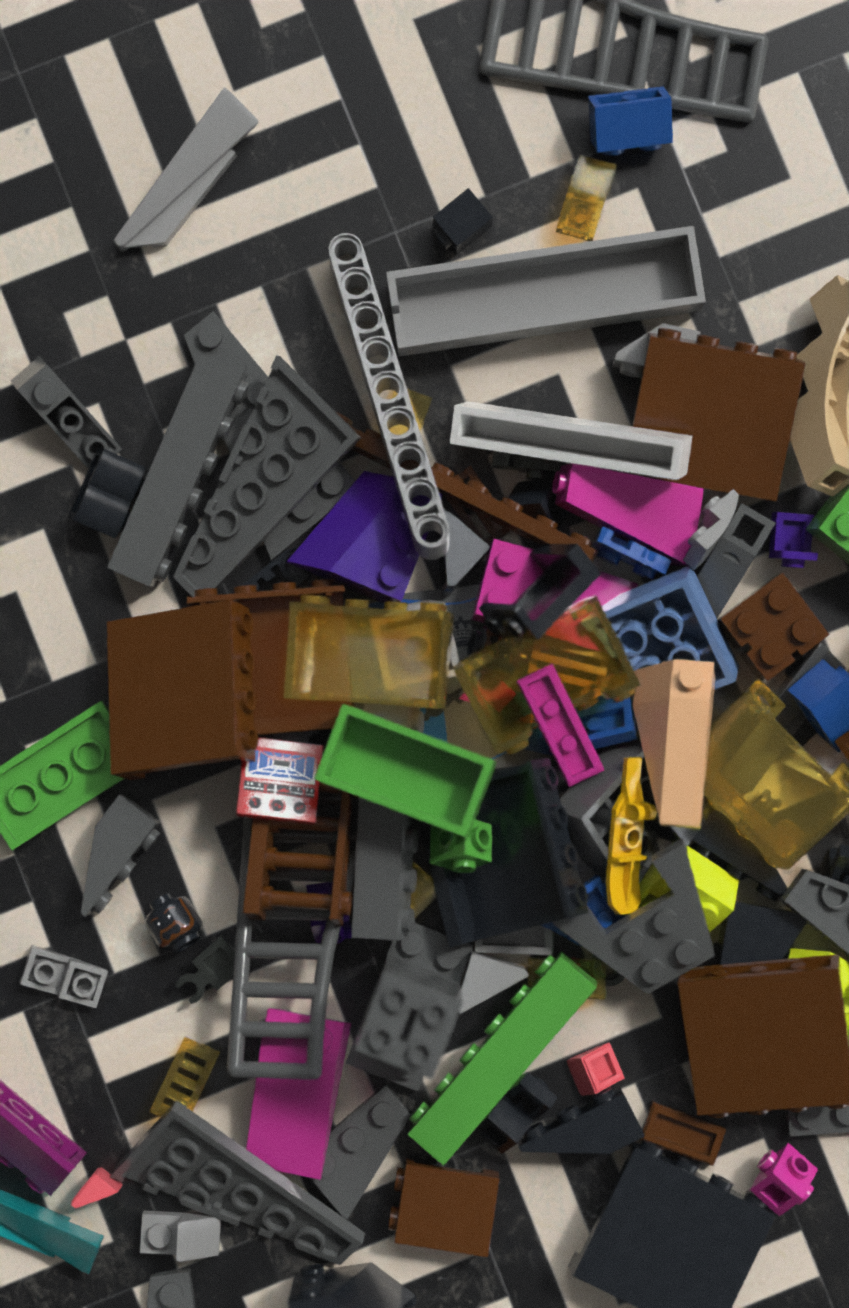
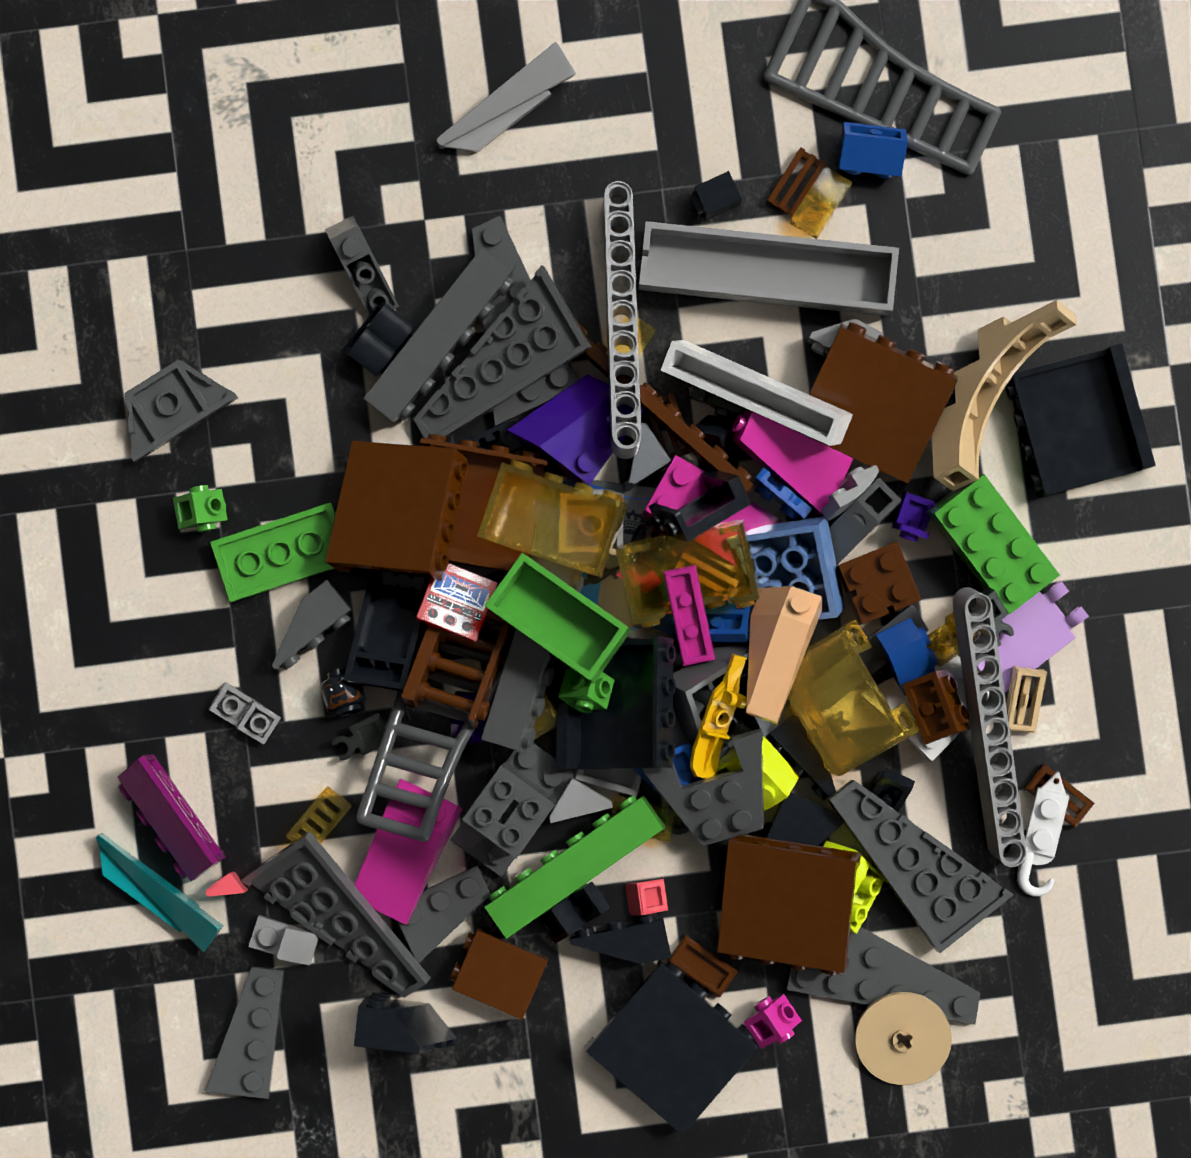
camera: 15 degrees right, 0 degrees up
(206, 838) = (387, 630): none -> black slope
(560, 152) = (810, 160): none -> reddish brown tile

